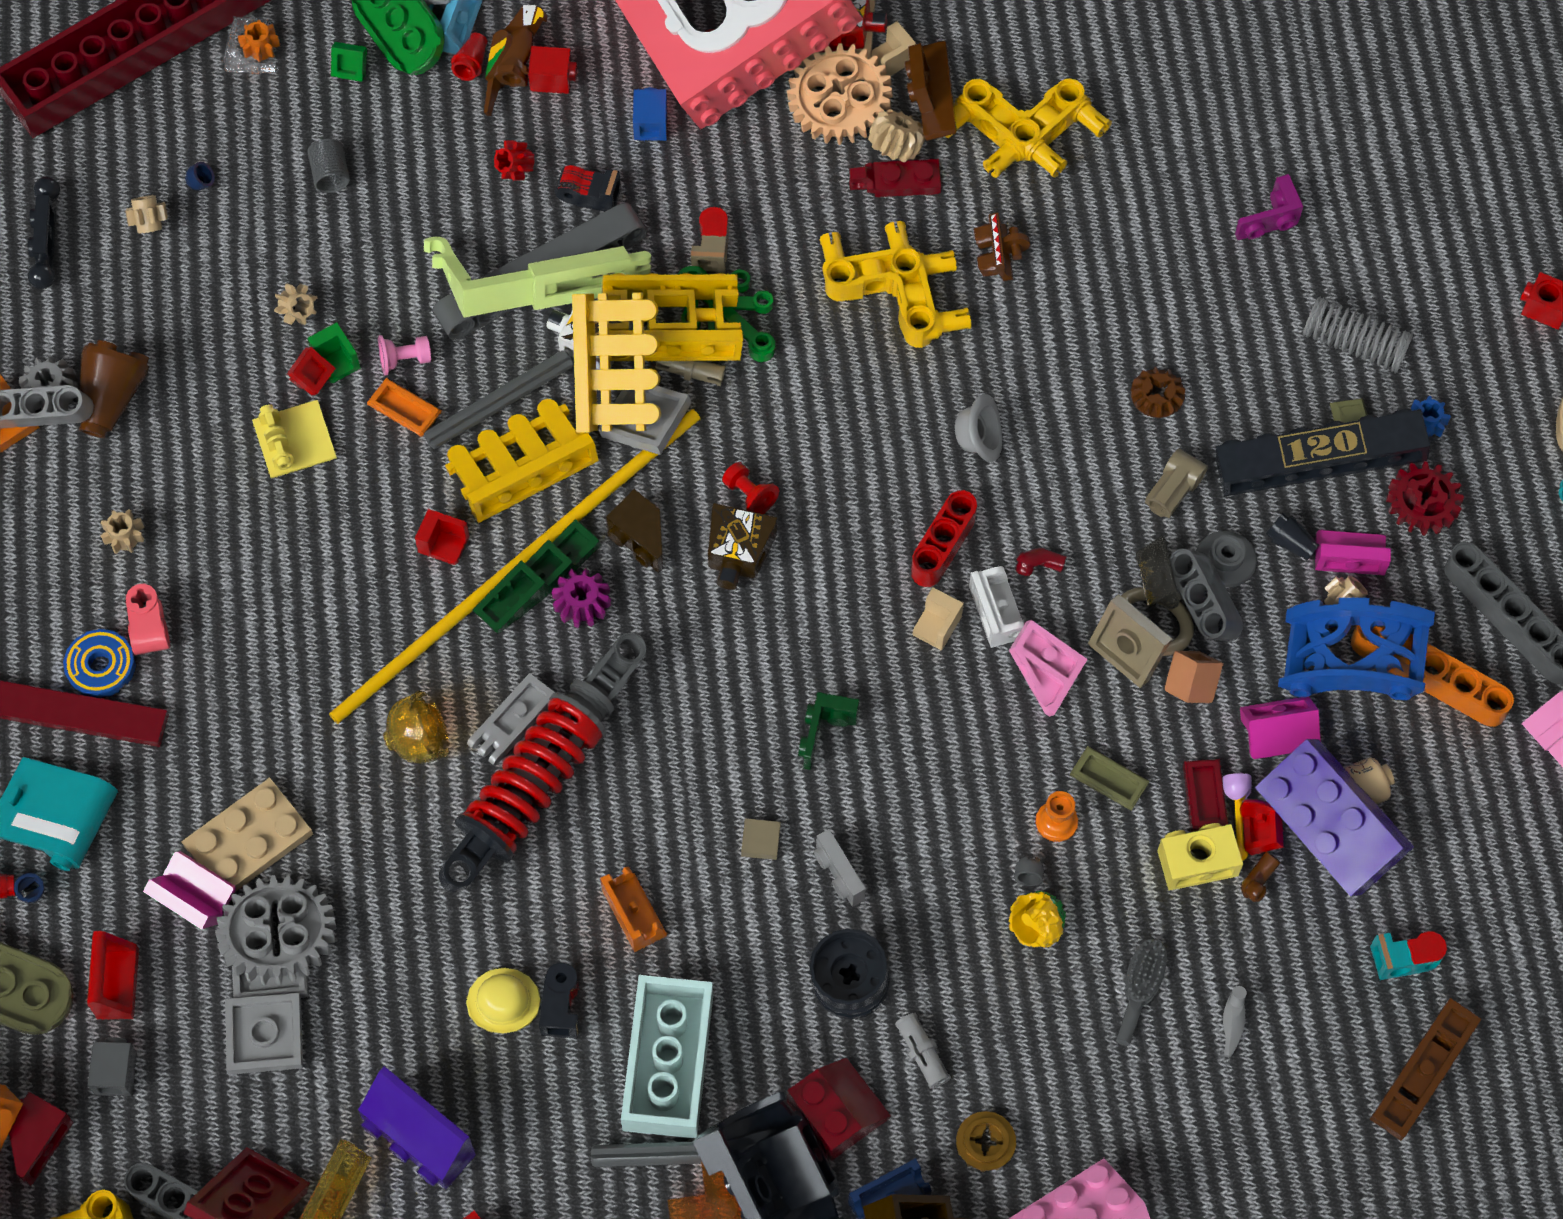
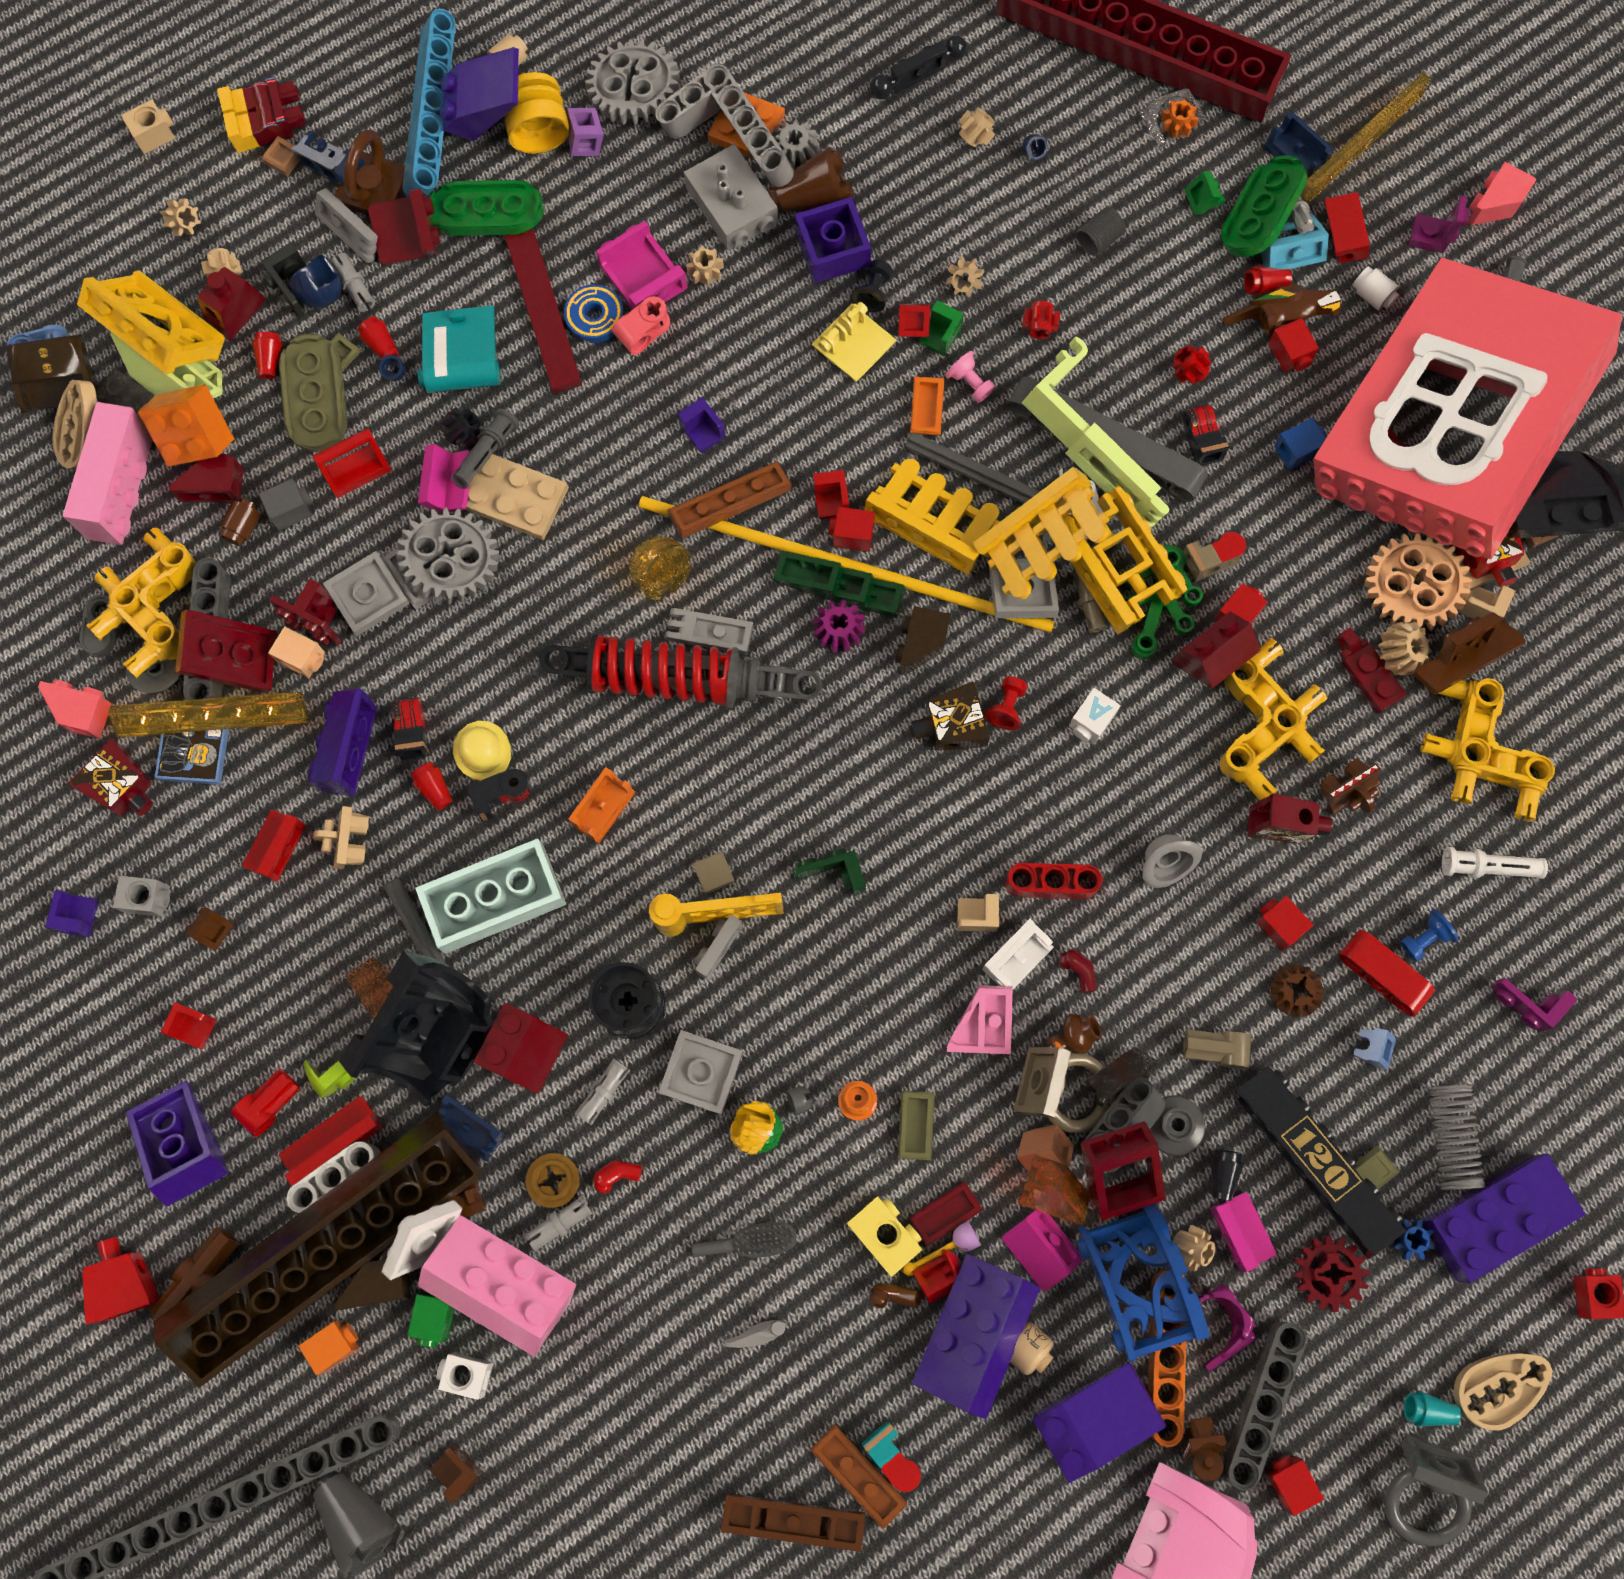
camera: 65 degrees right, 10 degrees up
(65, 470) = (731, 197): none -> light grey piece
(83, 594) = (640, 267): none -> dark pink panel
(101, 1127) = (239, 522): none -> reddish brown brick
(143, 849) = (461, 427): none -> black gear
(178, 399) = (833, 240): none -> dark purple brick
(178, 825) = (491, 440): none -> dark grey pin
(255, 396) = (870, 294): none -> black piece
(262, 1096) = (310, 612): none -> dark red bracket
(287, 1133) = (297, 652): none -> light nougat brick
(292, 618) = (701, 425): none -> dark purple panel
(384, 262) = (1041, 319): none -> red gear
(387, 633) = (729, 499): none -> dark orange tile
(439, 1058) = (410, 729): none -> leg
(490, 535) = (852, 528): none -> red brick
(513, 1065) = (431, 785): none -> red cone
(516, 1182) = (347, 823): none -> tan hips
(779, 247) = (1245, 602): none -> red brick
(786, 881) = (672, 916): none -> yellow piece
(806, 422) = (1094, 716): none -> white brick
(807, 283) = (1218, 650): none -> dark red slope
(954, 947) = (701, 1072): none -> light grey plate
(1007, 305) = (1286, 819): none -> dark red torso
(1008, 1077) = (613, 1172): none -> red arm
(1031, 1156) = (558, 1223): none -> light grey pin
(1091, 368) = (1283, 922): none -> red brick
(1098, 589) = (1078, 1034): none -> reddish brown animal
(1150, 149) = (1478, 860): none -> white pin
(1166, 248) = (1438, 929): none -> blue piece
(1182, 311) = (1386, 973): none -> red beam
(1227, 620) = (1101, 1156): none -> dark red window
(1232, 687) = (1054, 1190): none -> clear orange slope
(1249, 355) = (1380, 1047): none -> medium blue tile
(1409, 996) = (859, 1476): none -> dark orange tile
(1433, 595) = (1241, 1324): none -> magenta helmet
(1447, 336) = (1503, 1218): none -> dark purple brick
(1462, 752) = (1098, 1422): none -> dark purple slope
(1525, 677) = (1204, 1449): none -> reddish brown hips

